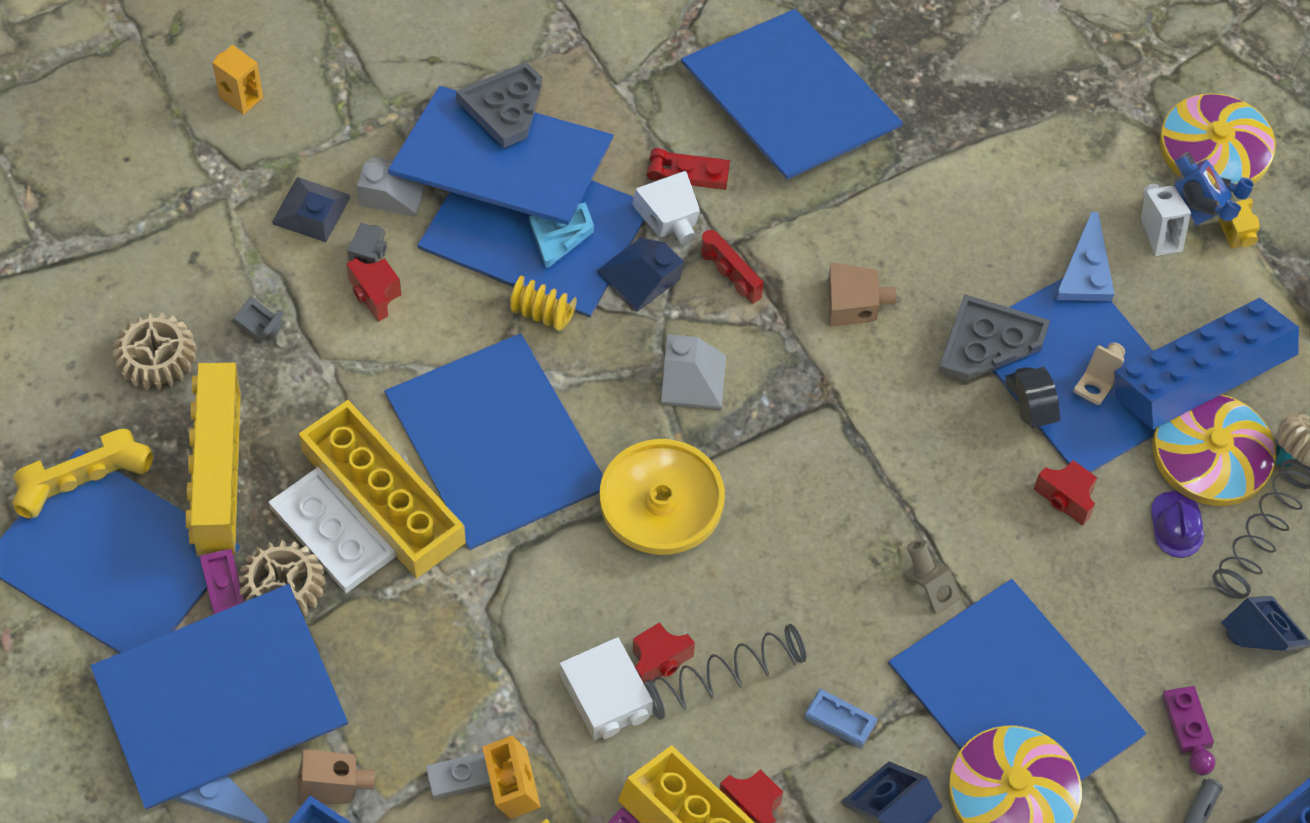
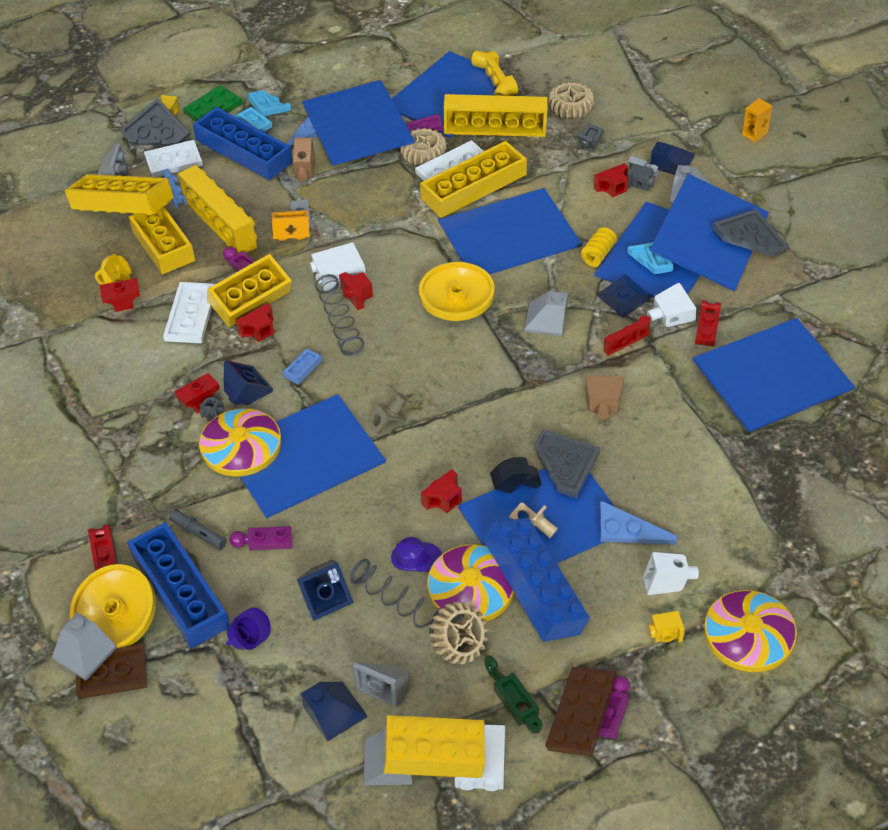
camera: 100 degrees right, 10 degrees down
(338, 250) = (634, 160): none -> light grey plate
(1207, 192) = (688, 595): blue torso -> none

